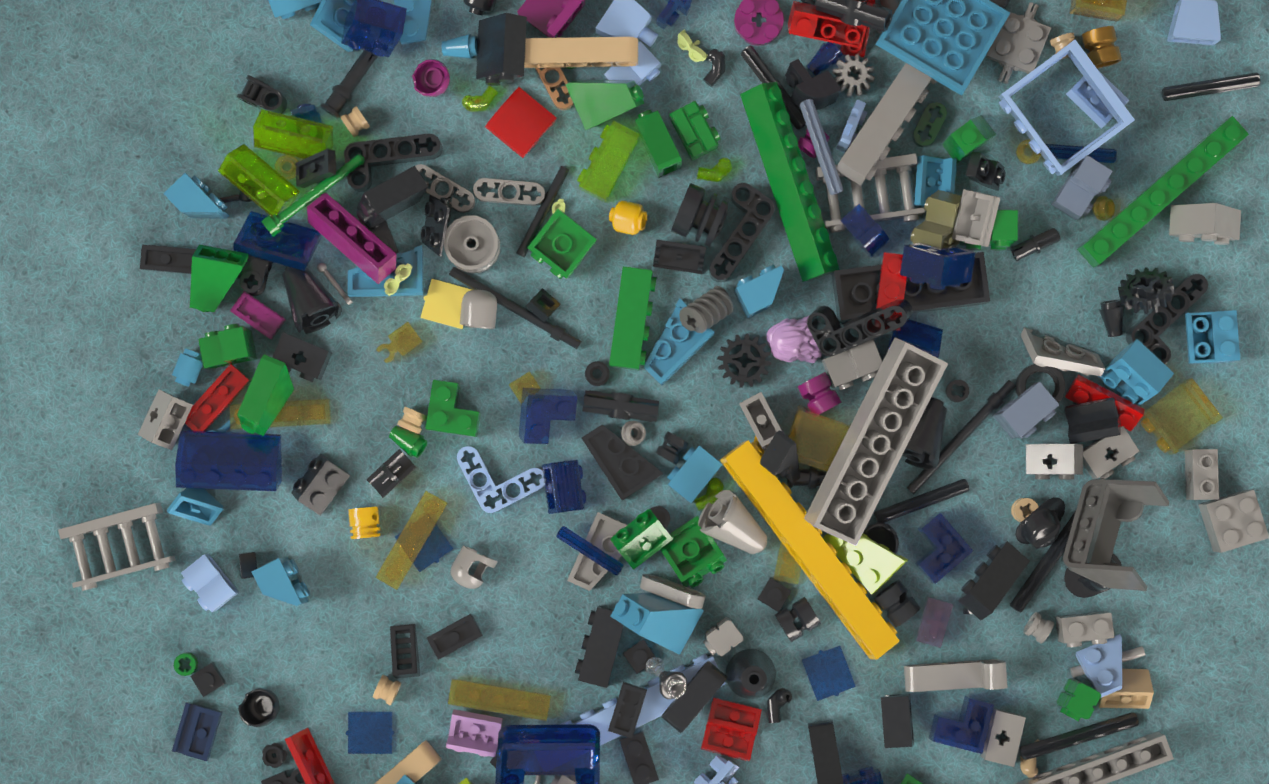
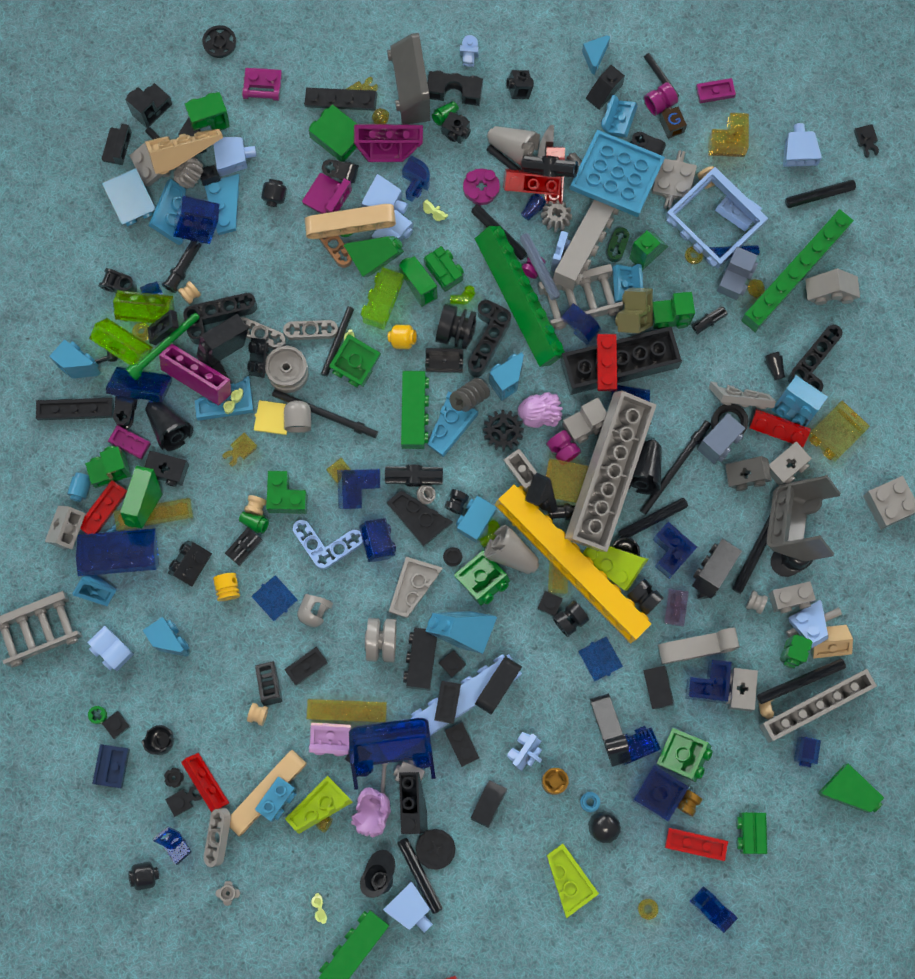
camera: 10 degrees left, 10 degrees down
(213, 275) = (92, 414): green slope -> none
(247, 564) = (137, 628): black slope -> none
(321, 267) = (174, 402): light grey hinge -> none
(370, 732) = (247, 751): clear blue piece -> none
(411, 540) = (264, 595): clear yellow plate -> none
(431, 78) = (243, 254): magenta hair -> none
(461, 47) = (263, 230): dark azure cone -> none
(479, 103) = (282, 268): clear neon green arm -> none
(501, 48) = (292, 225): black brick -> none
(520, 122) = (313, 279): red slope -> none
(543, 305) = (345, 408): black plate -> none
(548, 617) = (380, 640): none -> light grey wheel
(589, 373) = (393, 448): black plate -> none
(589, 550) = (403, 585): clear blue axle -> none
(641, 538) = (442, 571): green bracket -> none
(671, 683) = (479, 675): clear piece -> none
(672, 591) = (468, 607): light grey beam -> none
(718, 67) = (455, 222): black arm -> none
(722, 637) = (514, 638): light grey brick -> none
(731, 729) = (530, 711): red slope -> none
(744, 665) = (539, 674): black cone -> none
(775, 702) = (562, 687): black arm -> none
(821, 88) = (534, 226): black brick -> none
(862, 324) = (589, 387): black beam -> none
(937, 266) = (637, 336): clear blue brick -> none
(958, 383) = (667, 439): black bush -> none
(975, 217) = (661, 300): light grey hinge -> none
(985, 171) = (664, 271): black slope -> none
(1020, 509) = (730, 519): tan wheel -> none
(1042, 525) = (747, 523): black piece -> none
(1092, 420) = (772, 440): black panel -> none
(1101, 46) = (734, 171): pearl gold wheel -> none
(1146, 290) = (797, 341): black gear -> none
(1201, 474) = (861, 471): light grey brick -> none
(1212, 337) = (852, 369): dark azure slope -> none

